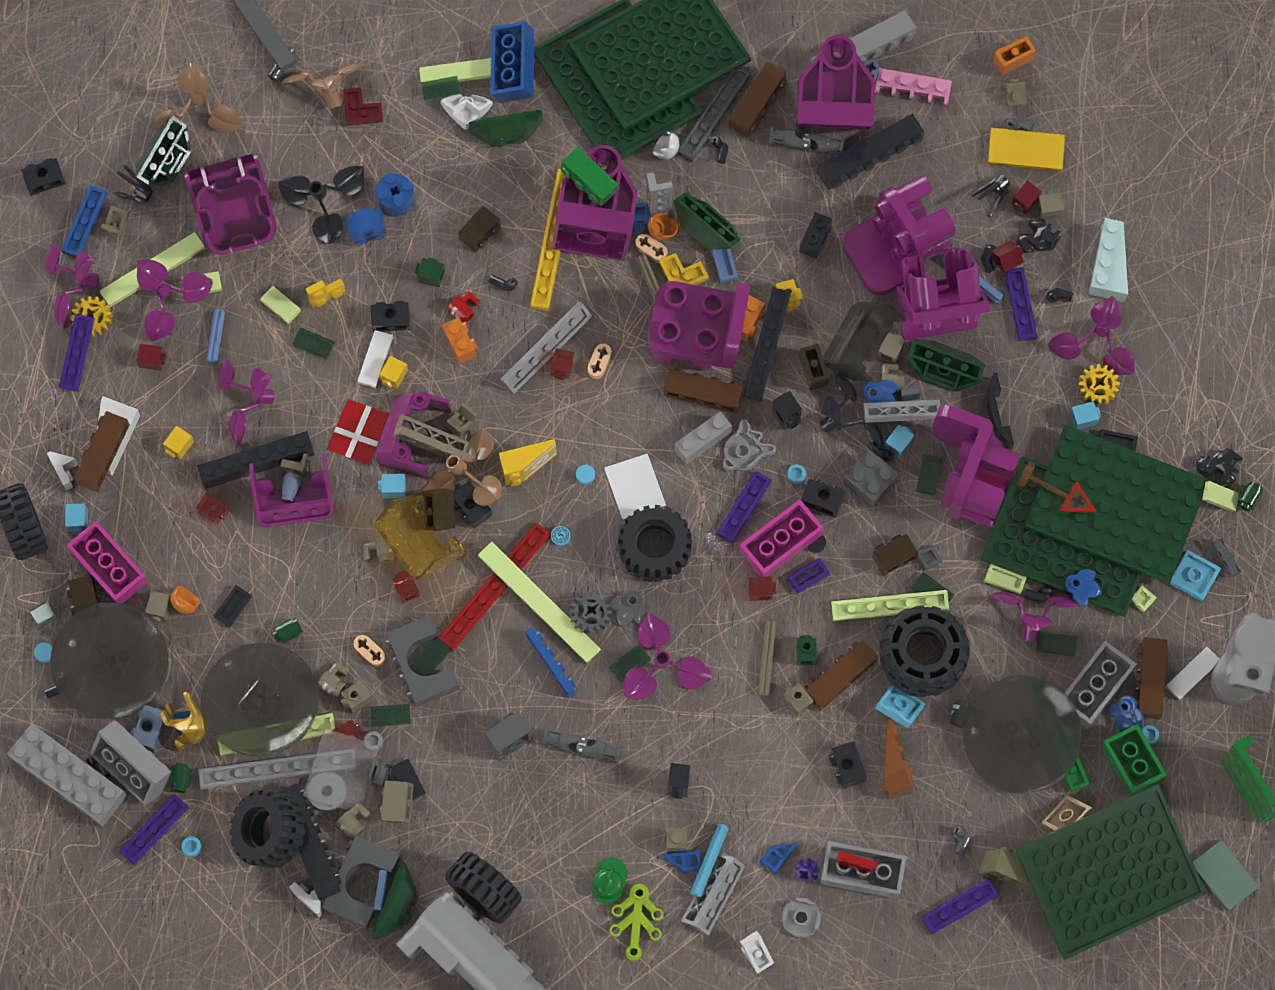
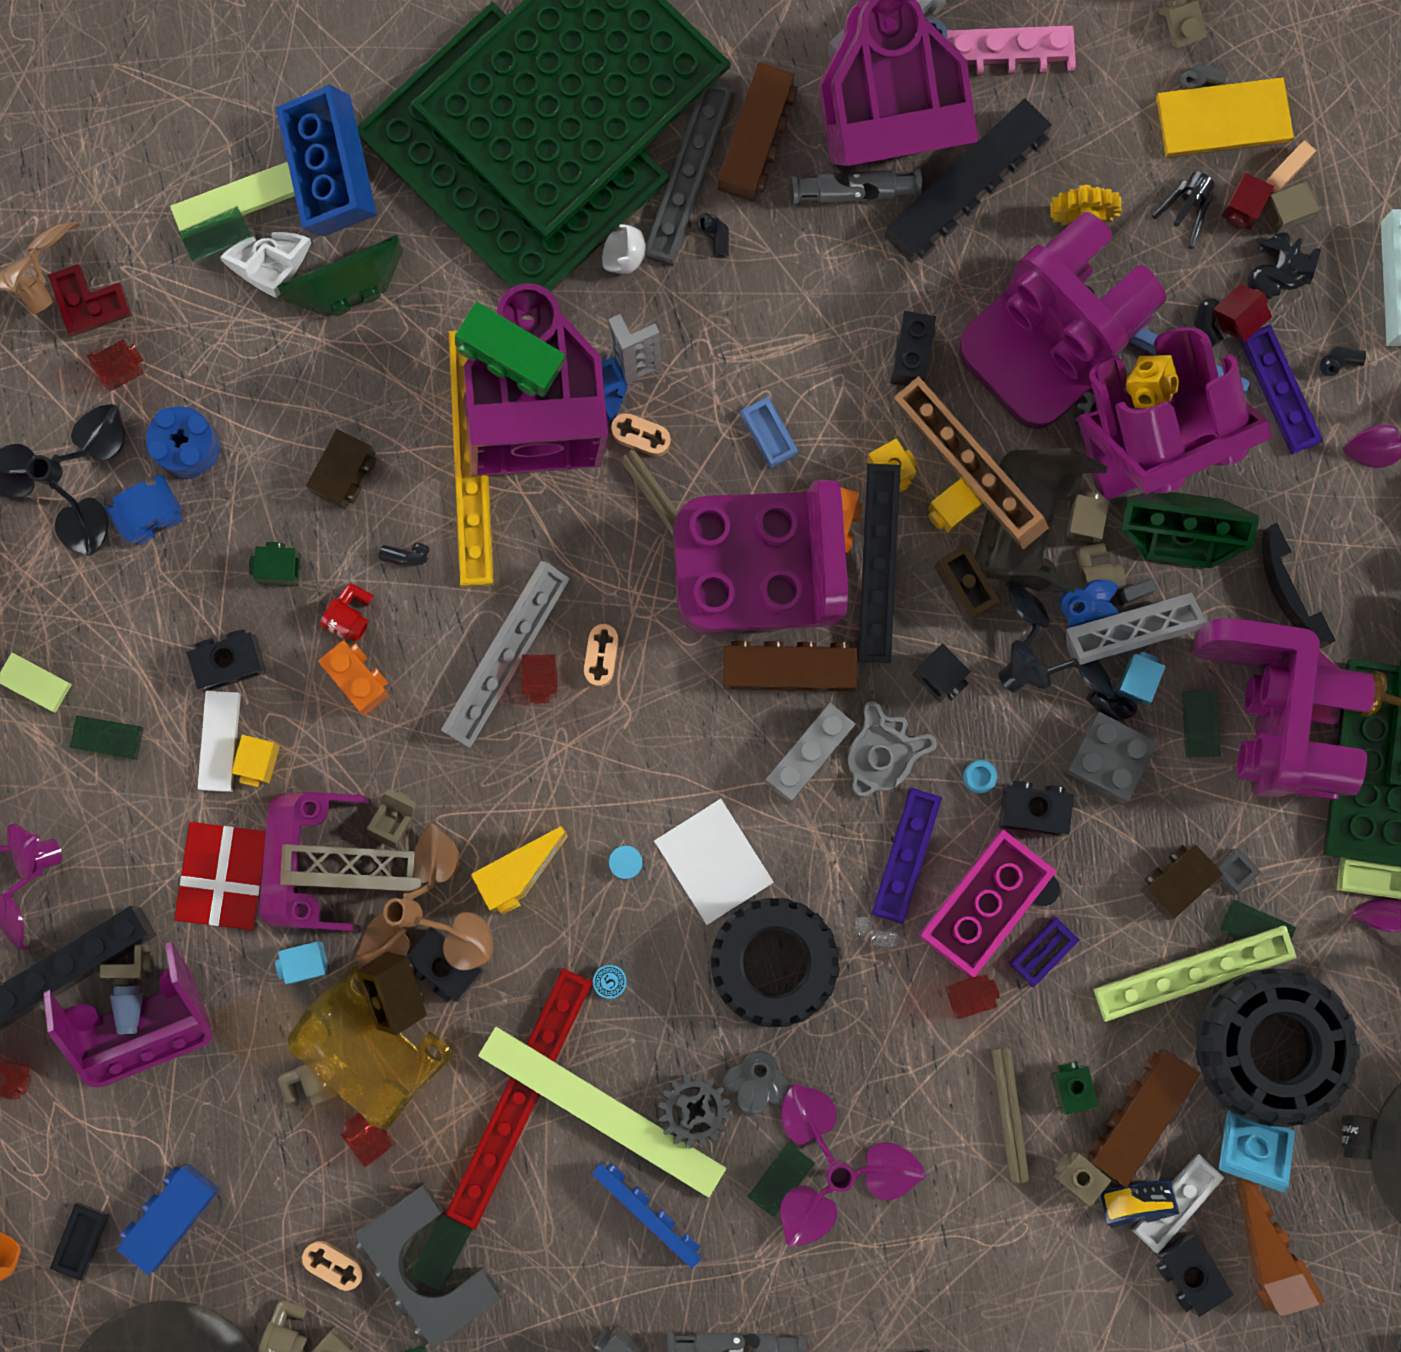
camera: 15 degrees left, 10 degrees up
(285, 603) = (167, 1218): none -> blue brick
(287, 630) = (183, 1266): dark green brick -> none
(319, 293) = (94, 652): yellow plate -> none
(367, 151) = (117, 375): none -> clear red brick
(662, 227) = (651, 394): orange hair -> none
(674, 271) = (702, 475): yellow plate -> none
(705, 223) = (723, 372): dark green wedge -> none
(817, 325) = (953, 506): none -> yellow brick
(831, 300) = (971, 463): none -> medium nougat brick
(832, 719) = (1139, 1201): none -> slope
(849, 727) = (1191, 1189): none -> white tile
(938, 179) = (1086, 199): none -> yellow gear
(940, 269) = (1152, 381): none -> yellow brick
(1056, 183) = (1291, 166): none -> light nougat beam

